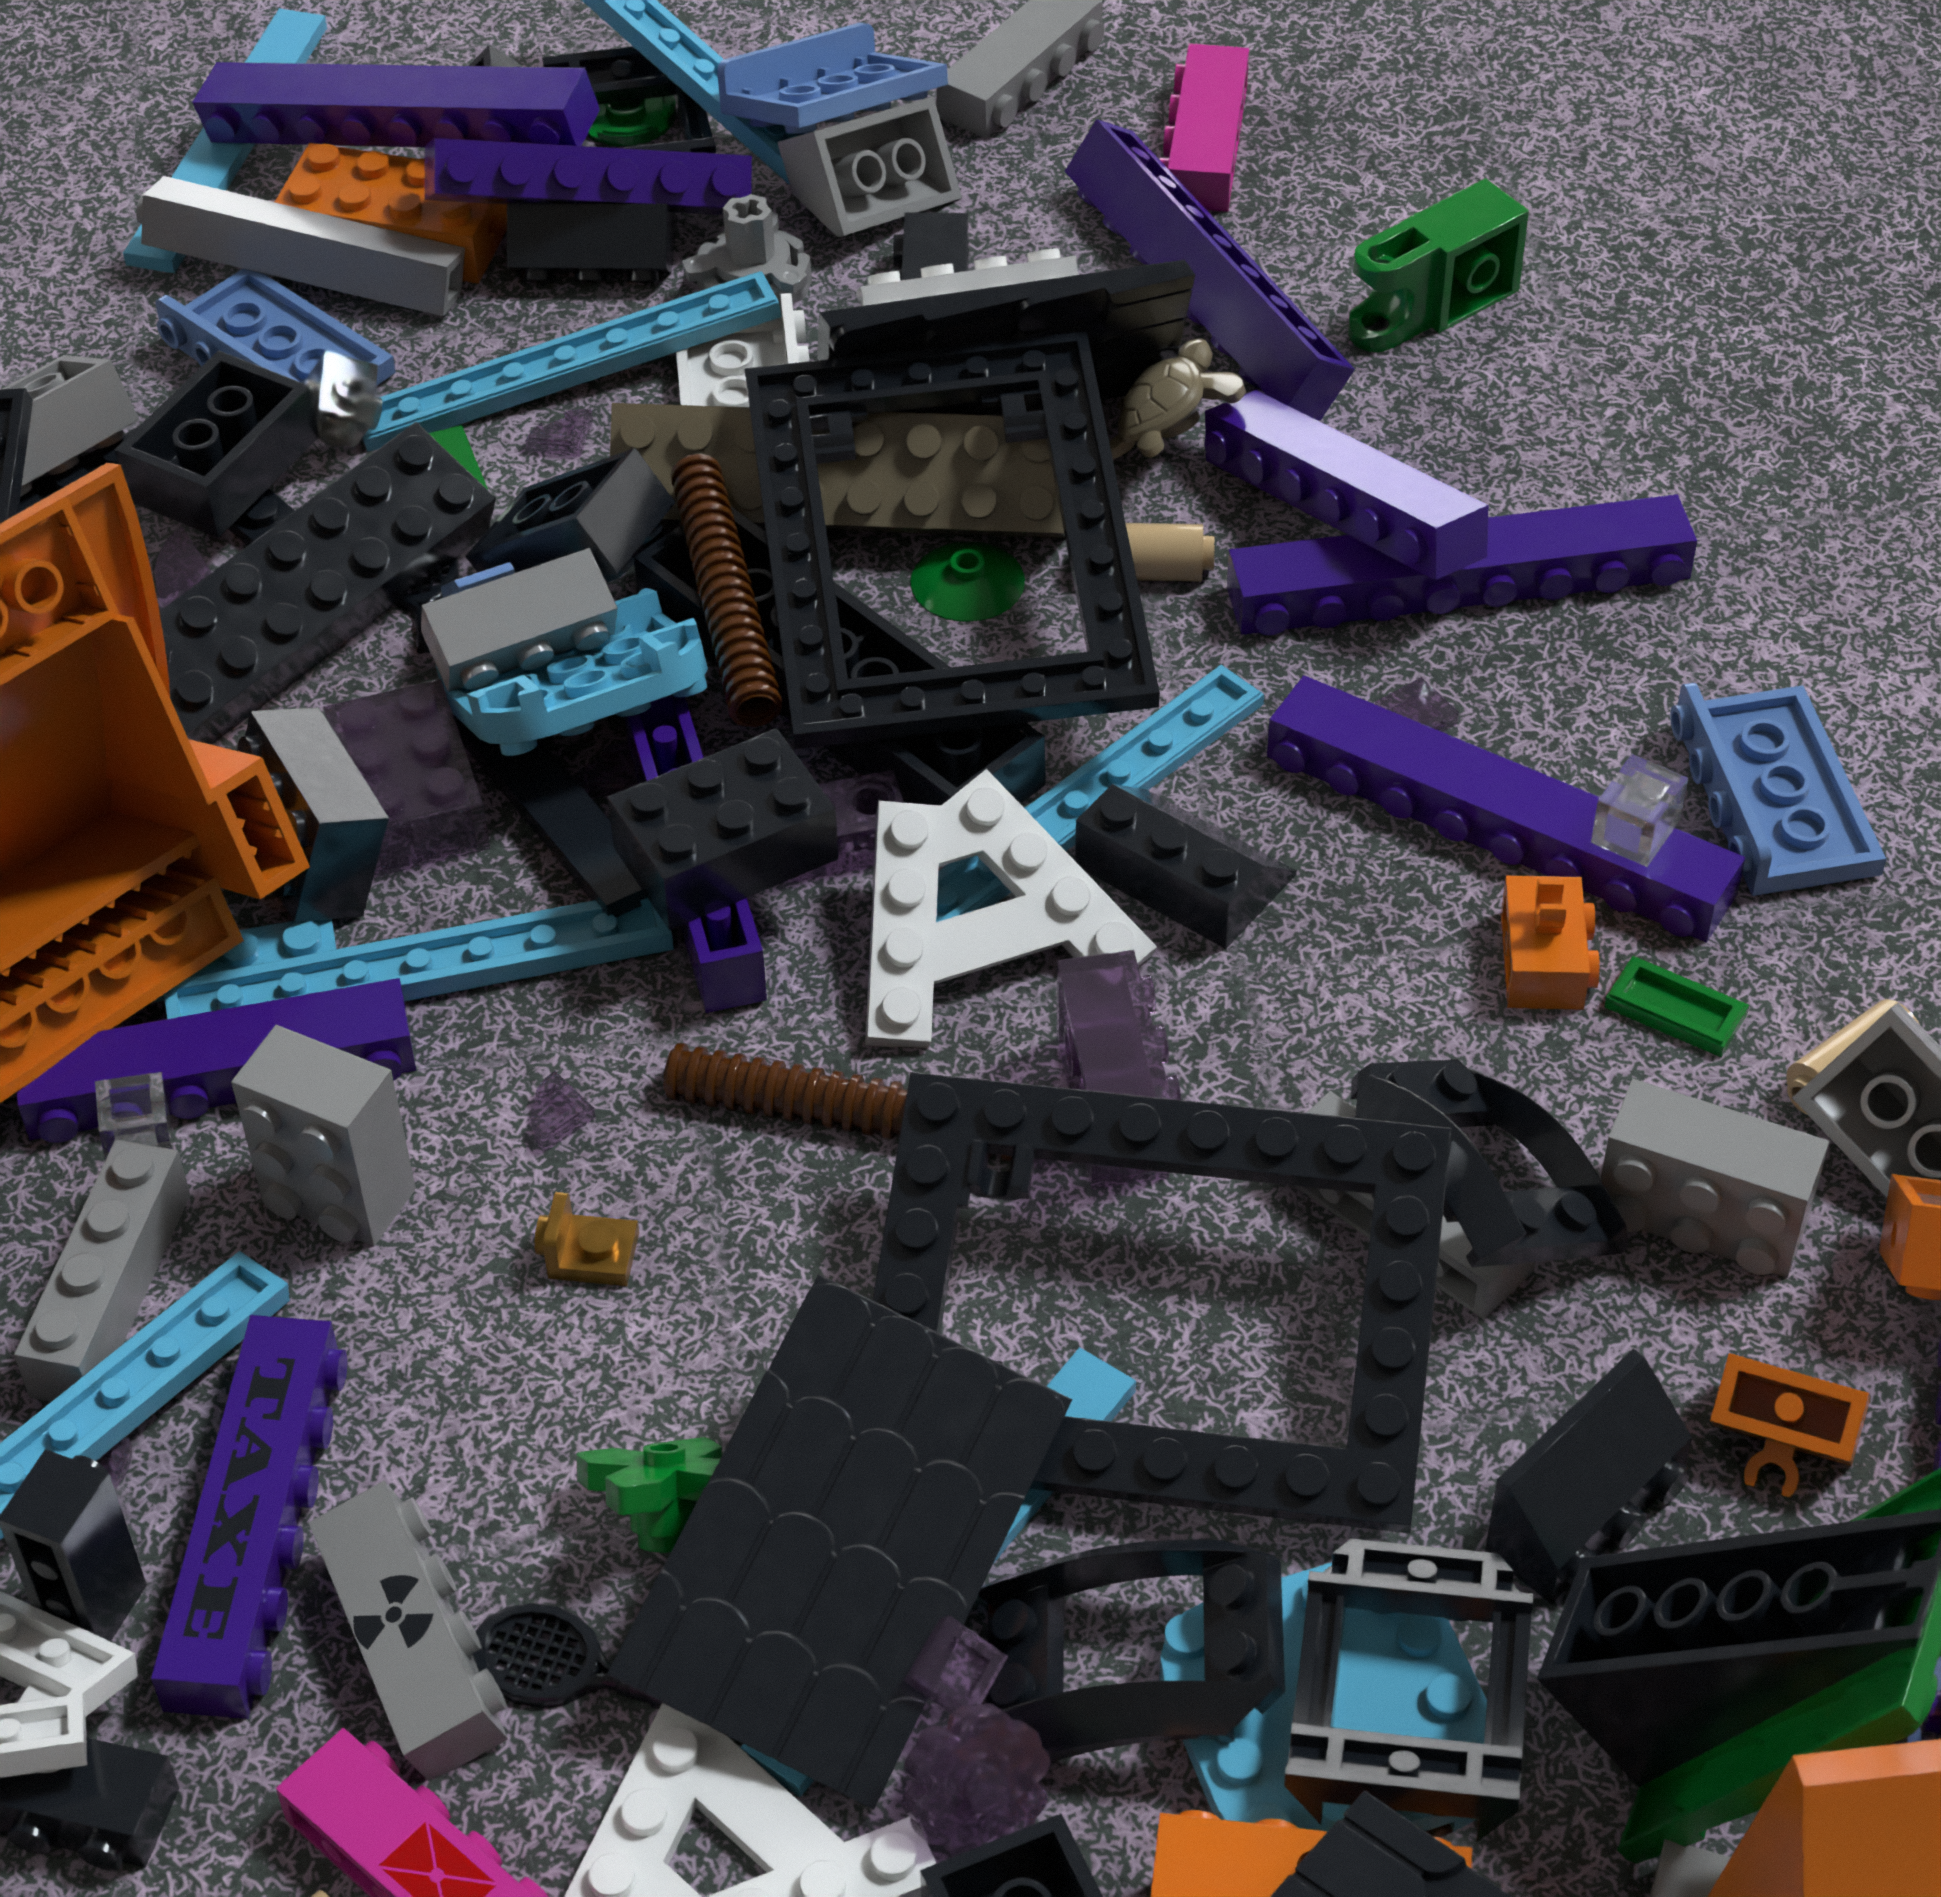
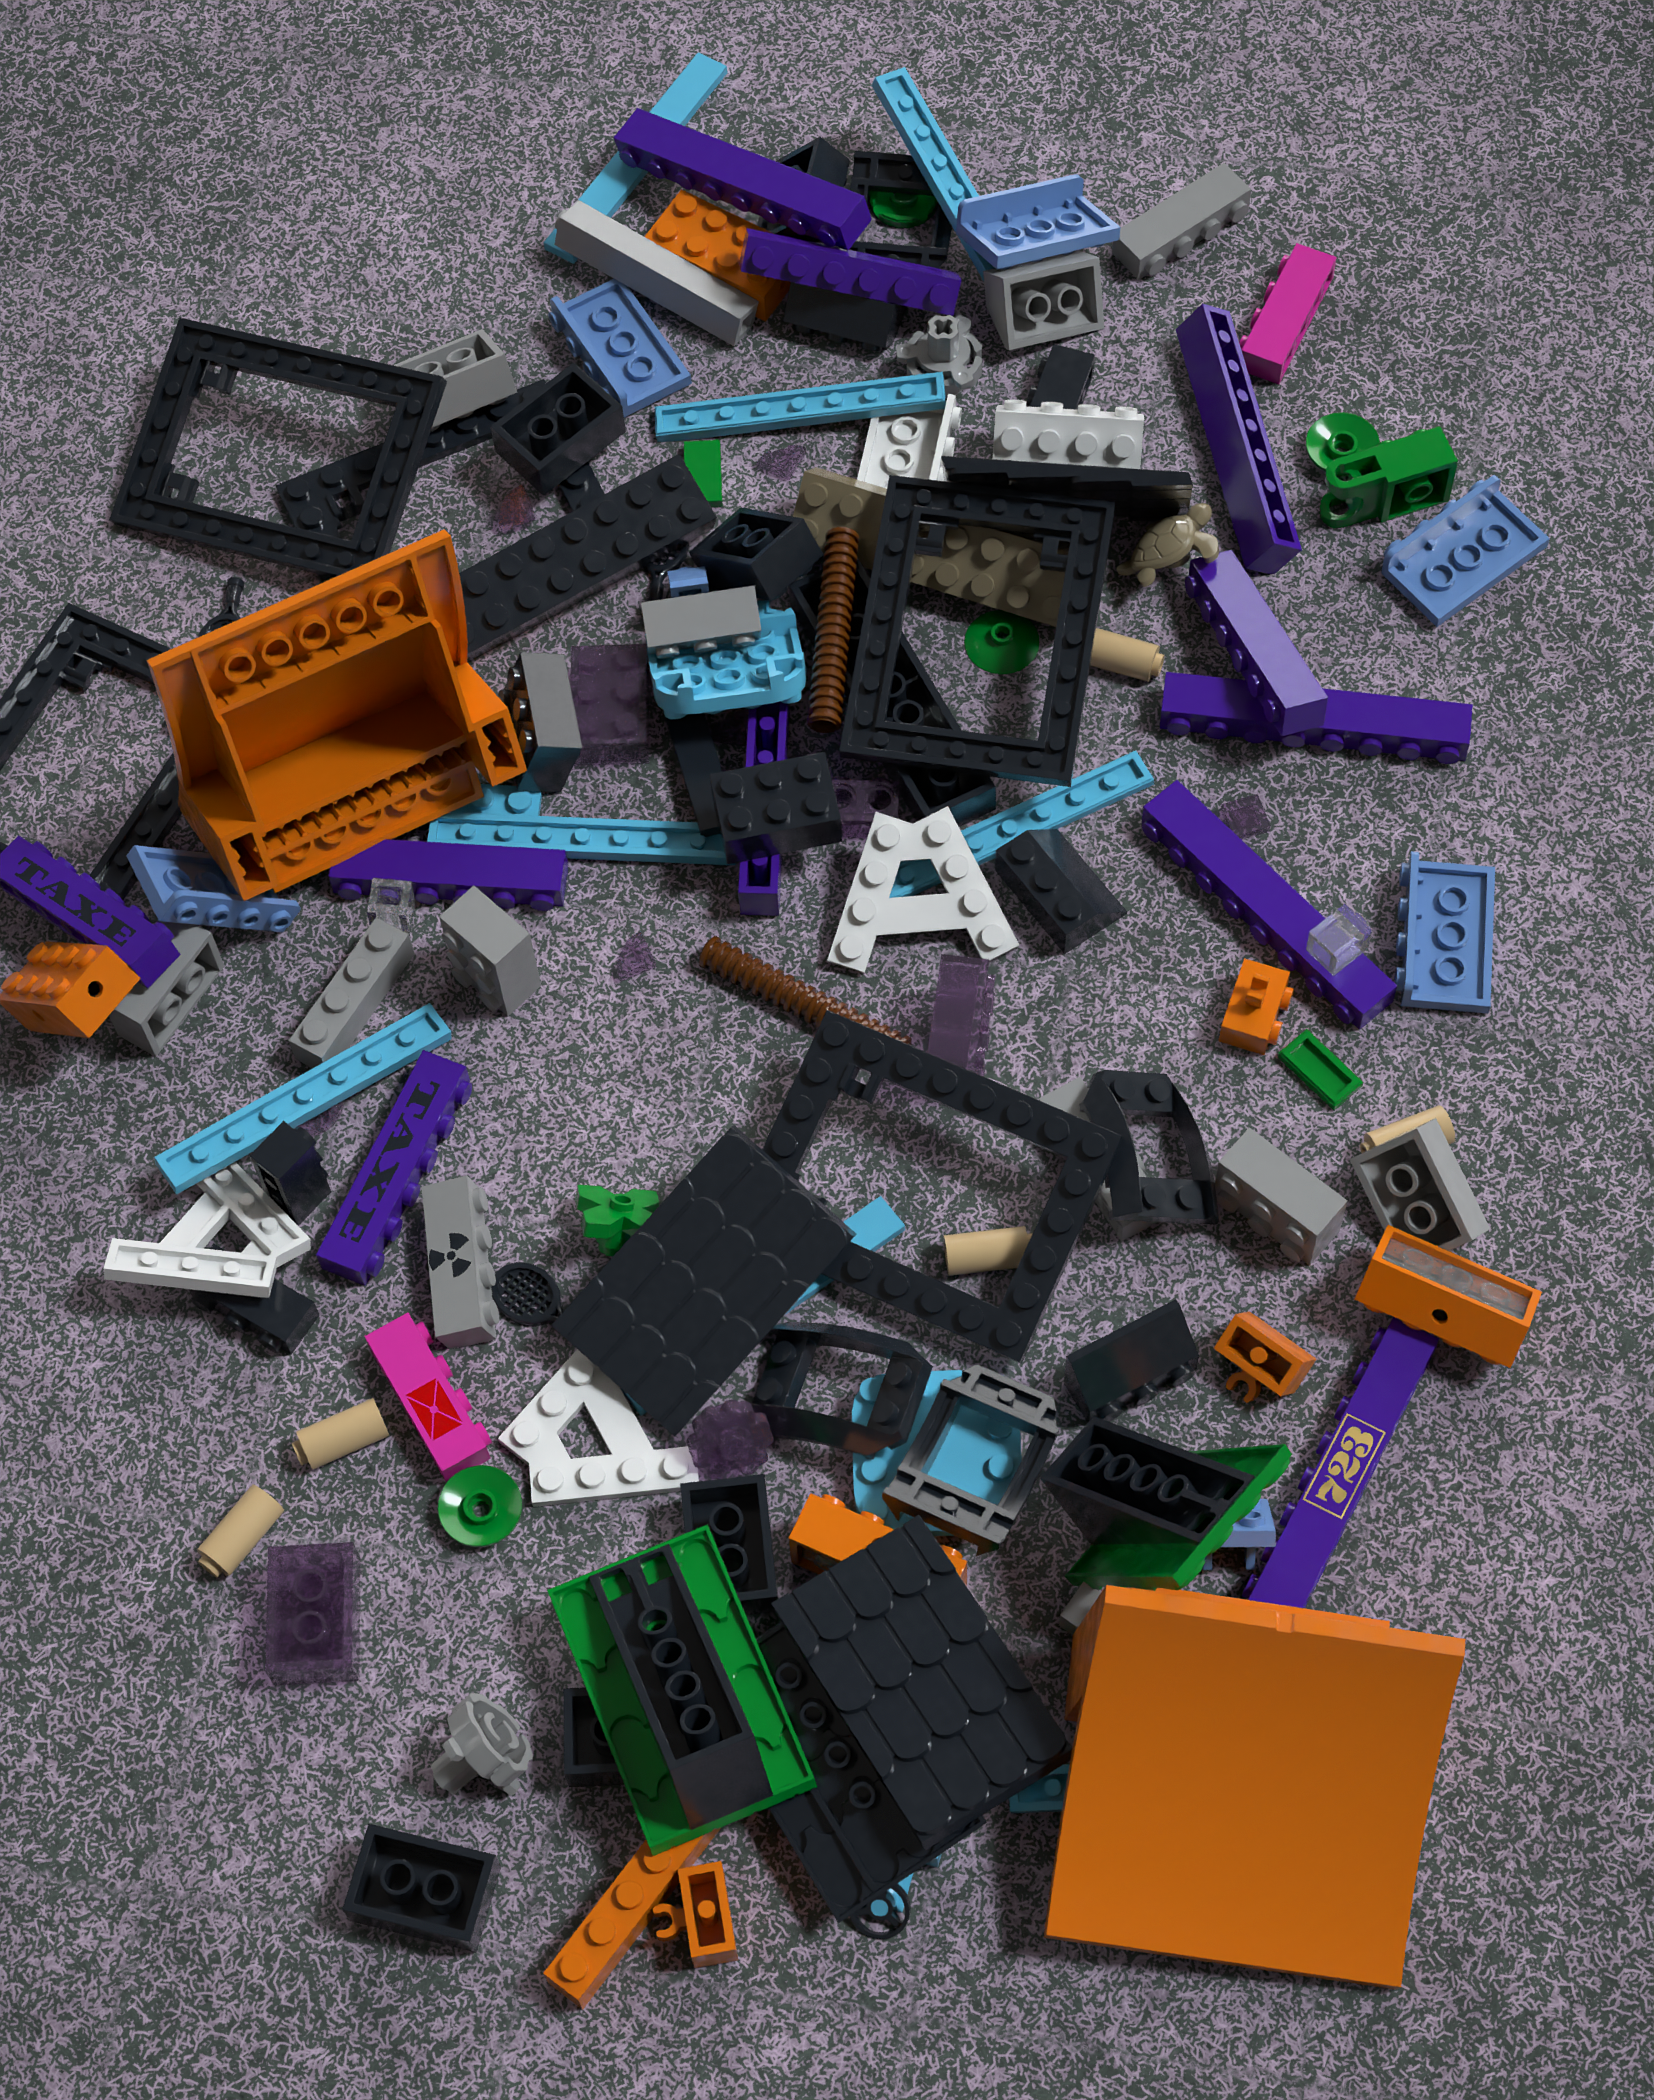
camera: 20 degrees right, 15 degrees up
(344, 398) = (646, 409): clear smoke brick -> none
(585, 1246) = (624, 1051): pearl gold bracket -> none
(955, 1666) = (740, 1373): clear purple tile -> none
(1283, 1381) = (985, 1250): none -> tan brick
(1329, 245) = (1338, 431): none -> green dish
(1567, 336) = (1462, 551): none -> medium blue bracket

